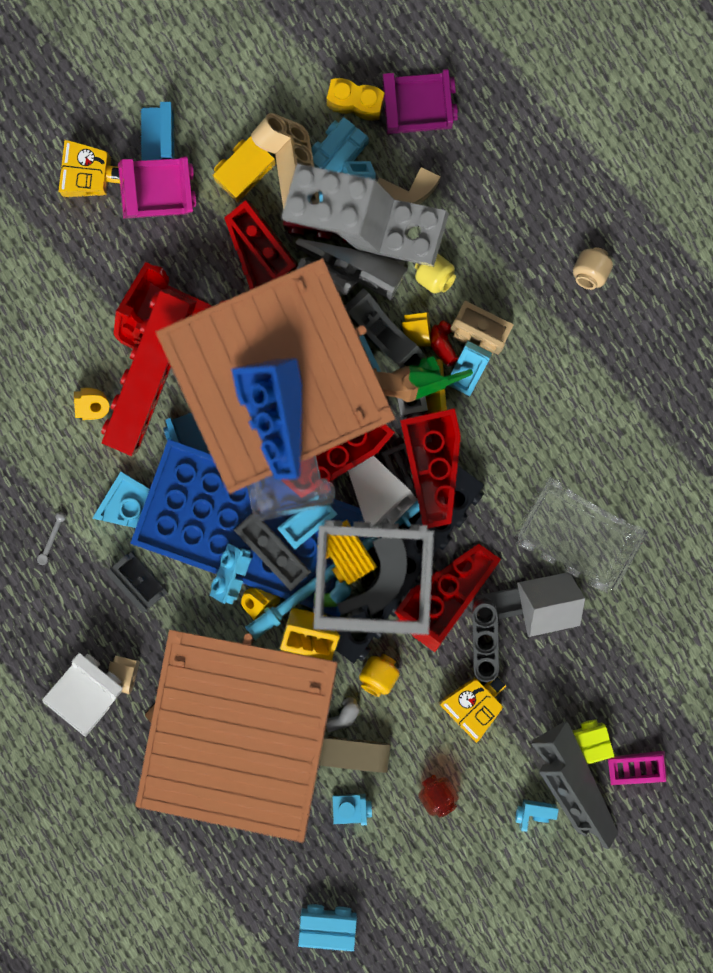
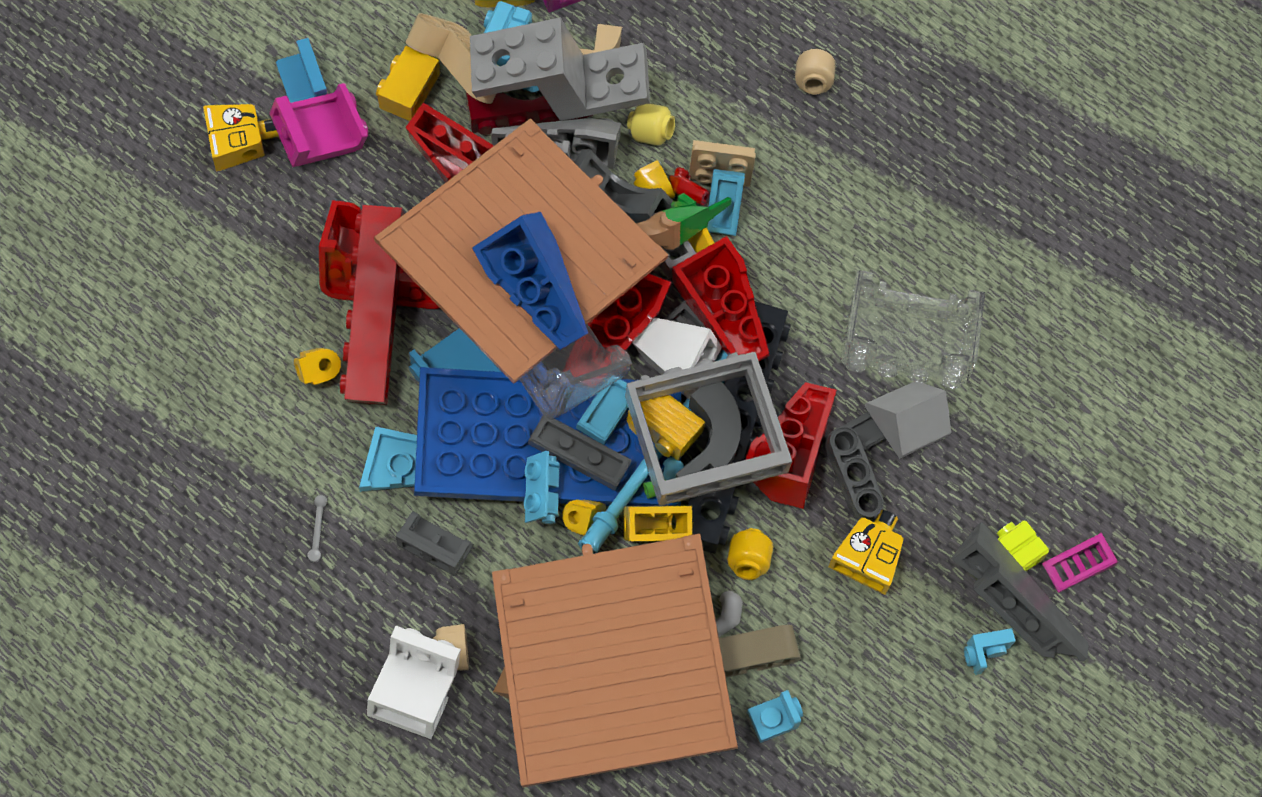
camera: 25 degrees left, 20 degrees down
(438, 796) = (870, 666): clear red head -> none

